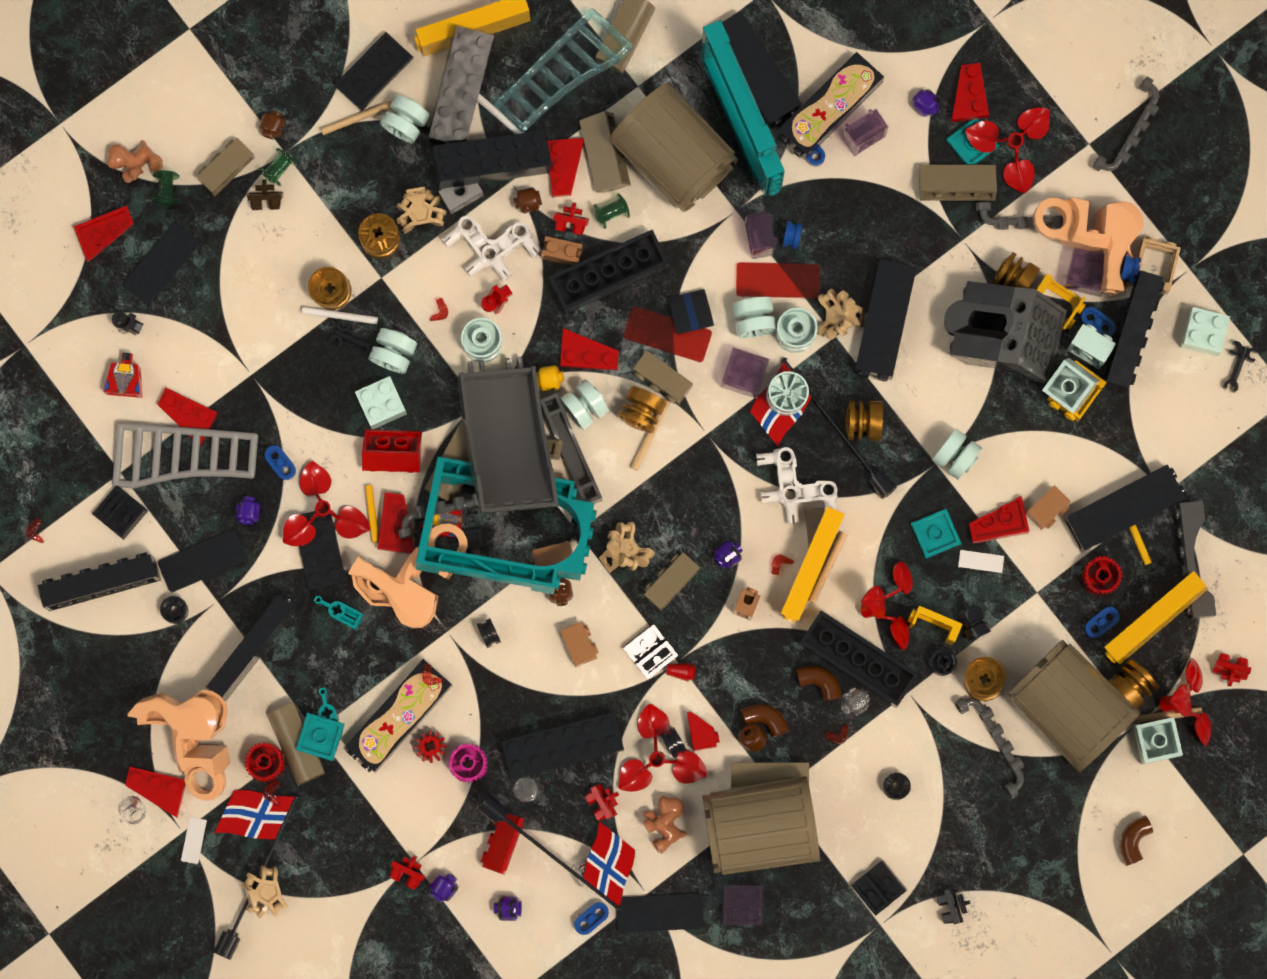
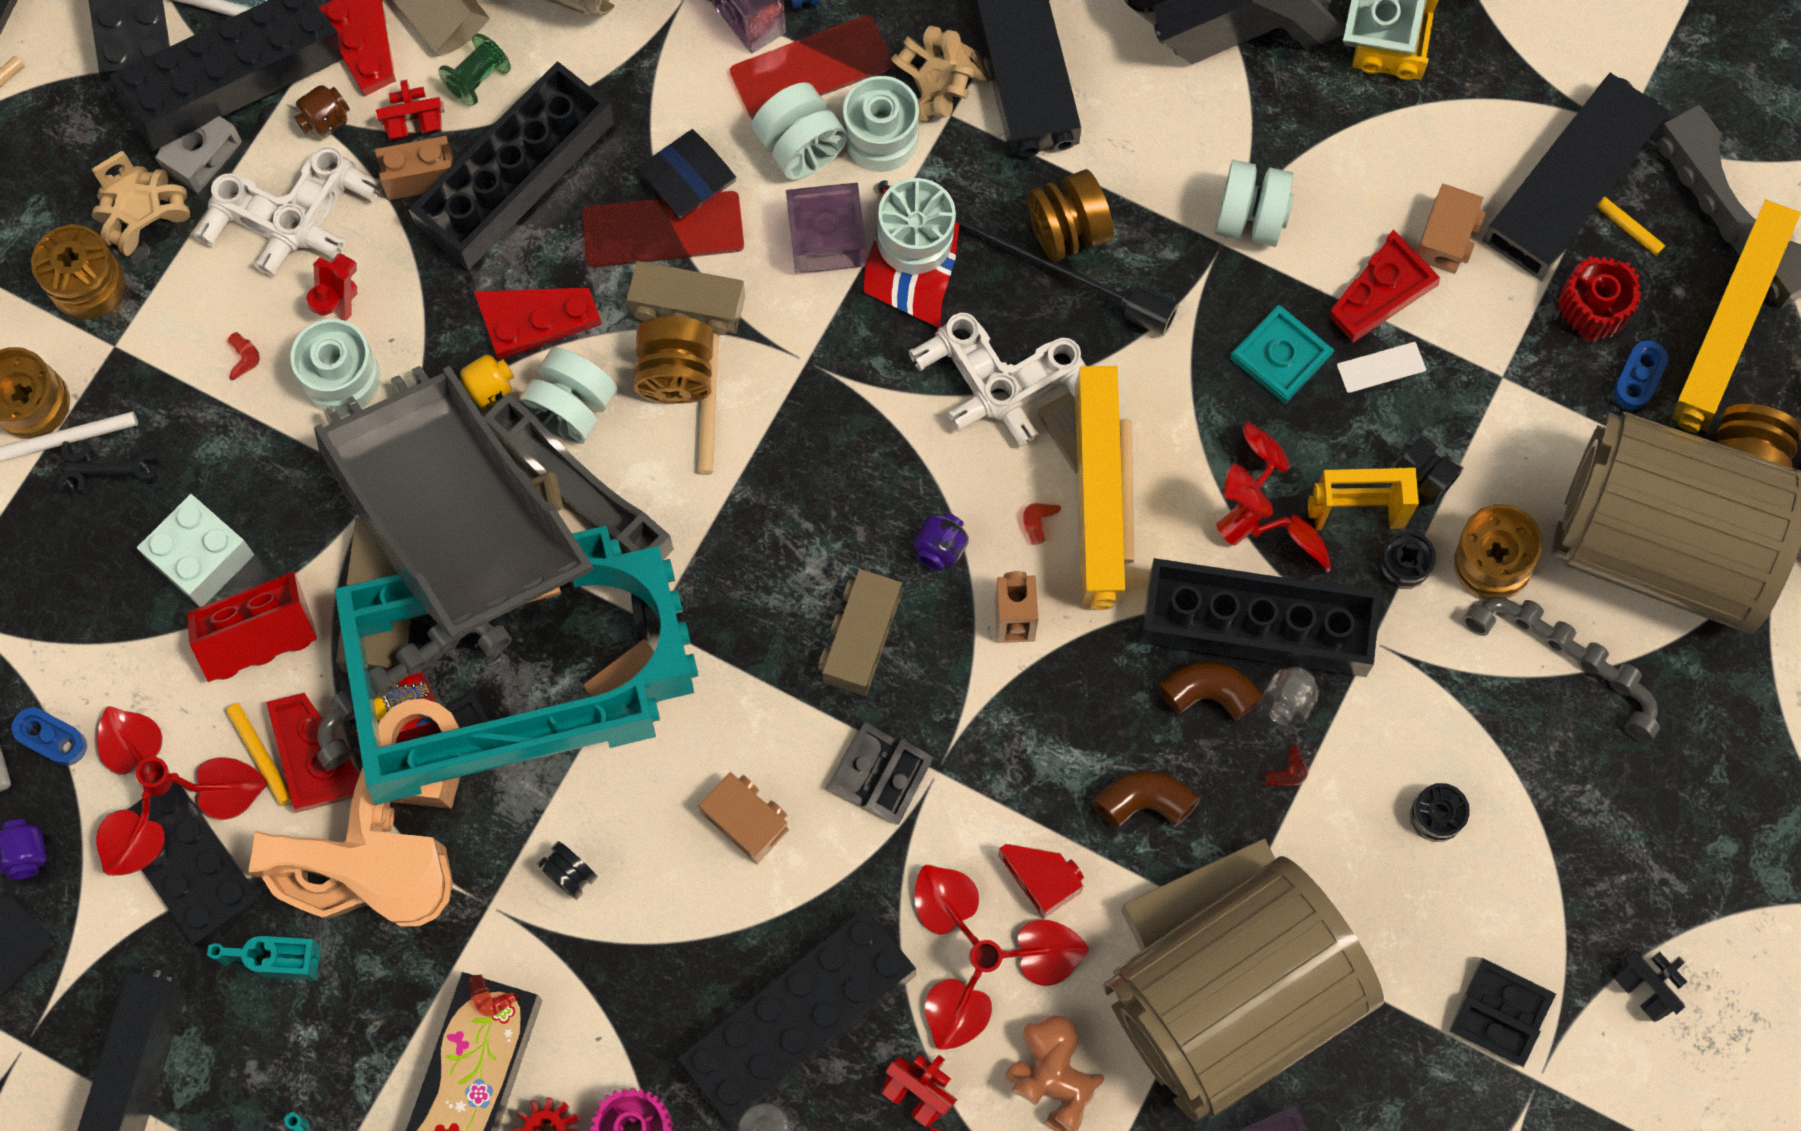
camera: 25 degrees left, 10 degrees down
(394, 345) = (179, 450): light aqua wheel -> none
(407, 114) = (47, 66): light aqua wheel -> none
(563, 594) = (672, 740): reddish brown head -> none
(625, 550) = (751, 614): tan piece -> none
(673, 742) = (1000, 916): black wheel -> none
(682, 671) = (954, 782): red cone -> none
(752, 737) = (1140, 841): reddish brown head -> none

